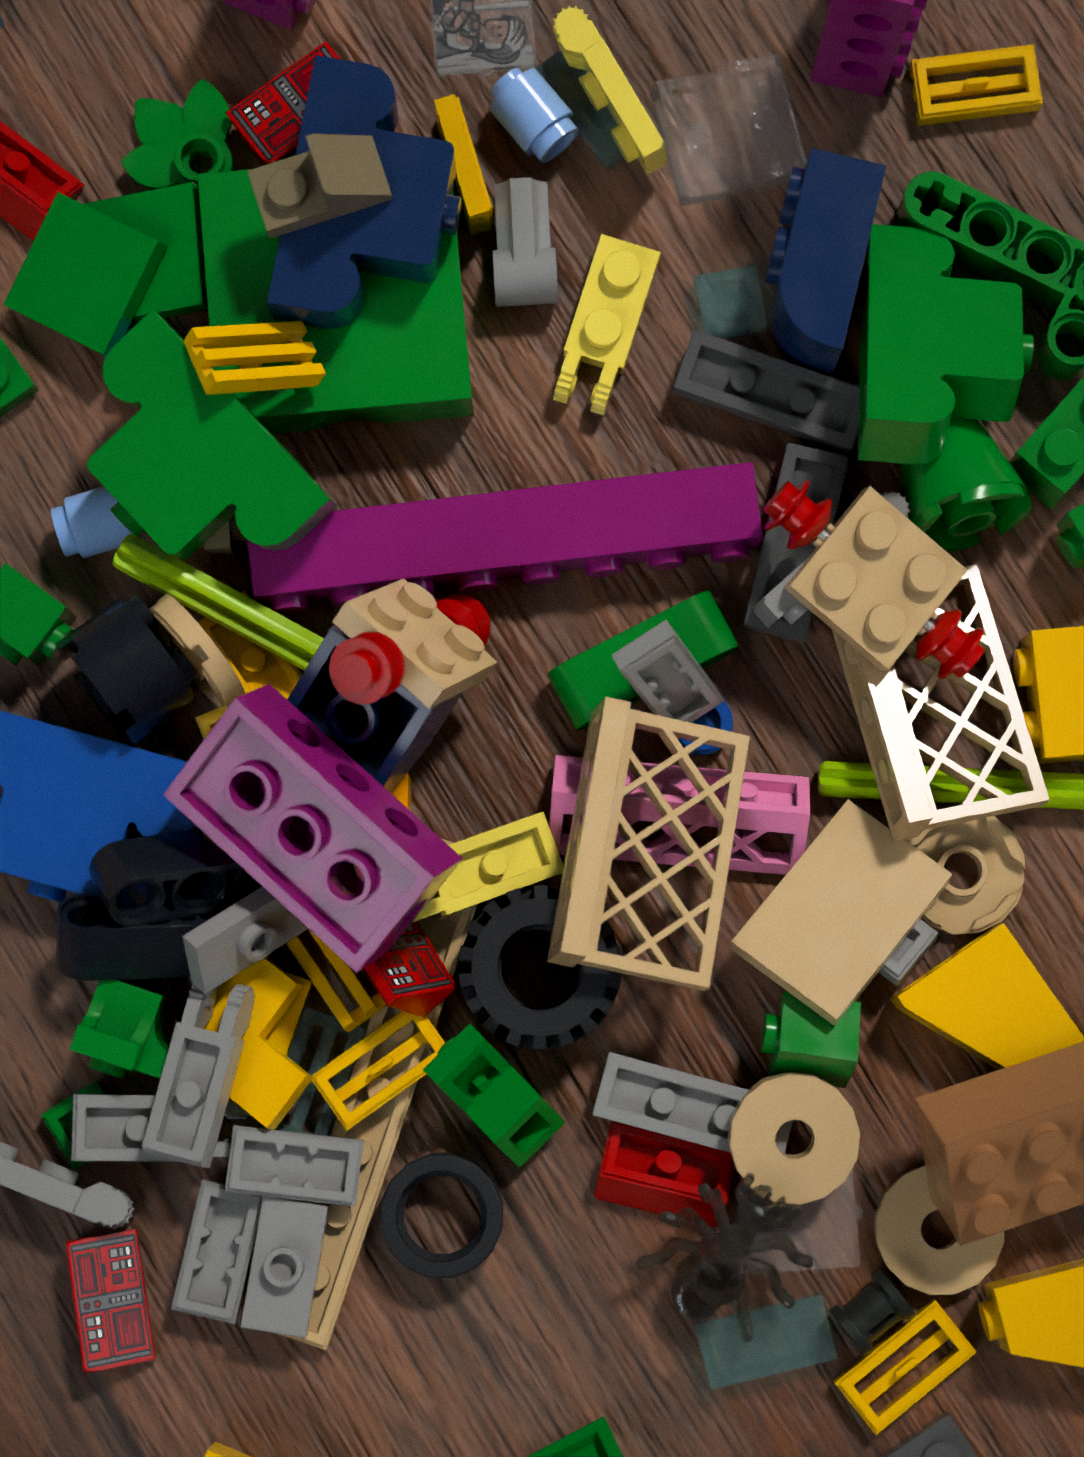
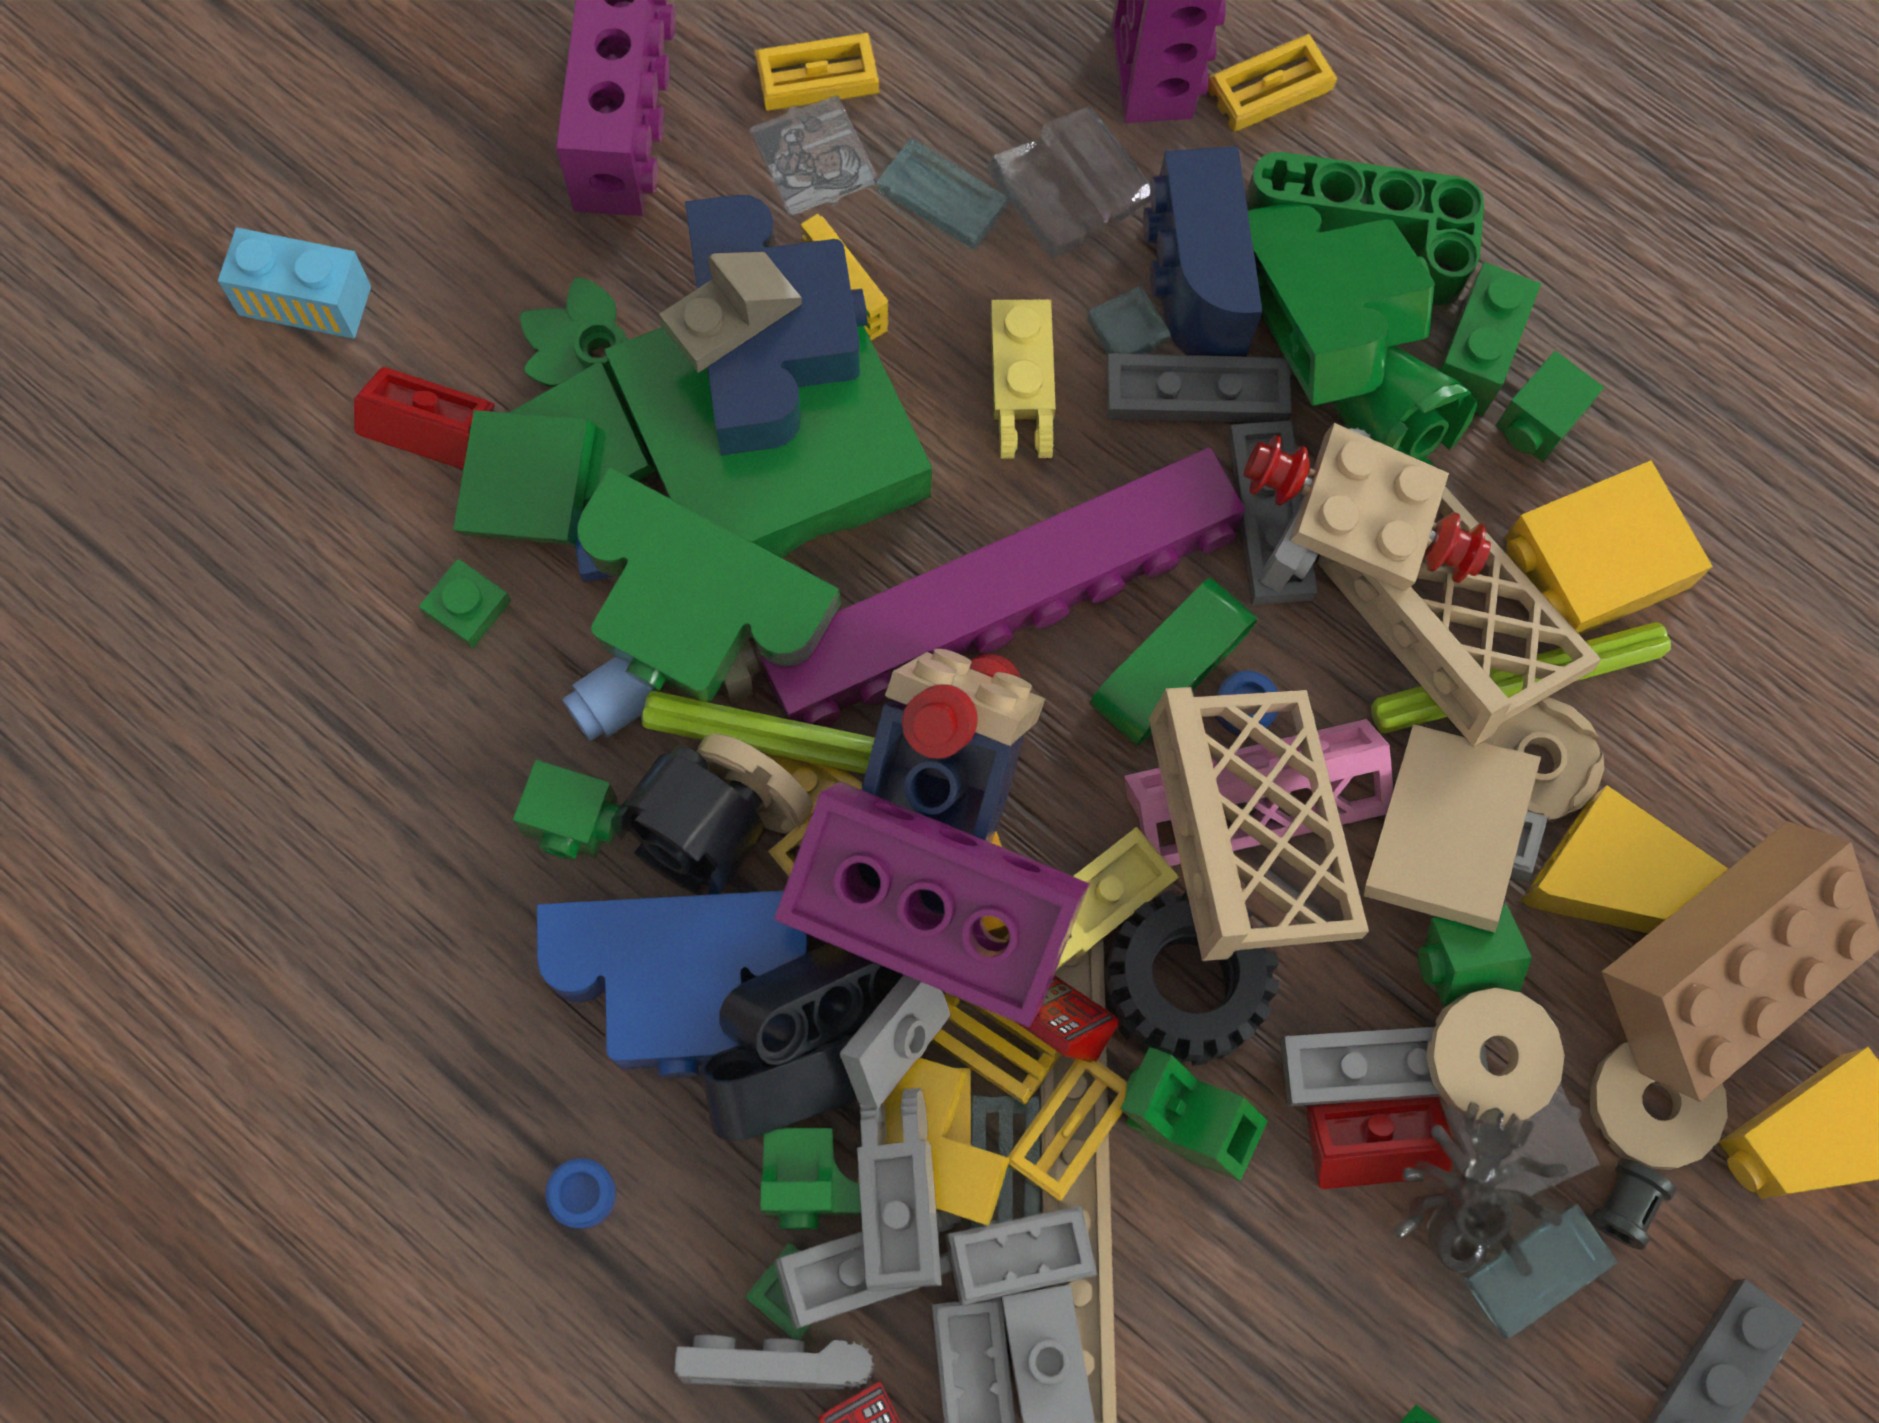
camera: 25 degrees left, 10 degrees down
(249, 348) = (714, 477): yellow tile -> none
(273, 113) = (659, 277): slope -> none
(396, 1233) = (1231, 1240): black tyre -> none
(524, 257) = (929, 343): light grey piece -> none
(533, 114) = (892, 216): light blue brick -> none
(609, 87) = (958, 169): light yellow hinge -> none
(667, 675) = (1210, 653): light grey plate -> none
(887, 1346) = (1705, 1262): yellow tile -> none

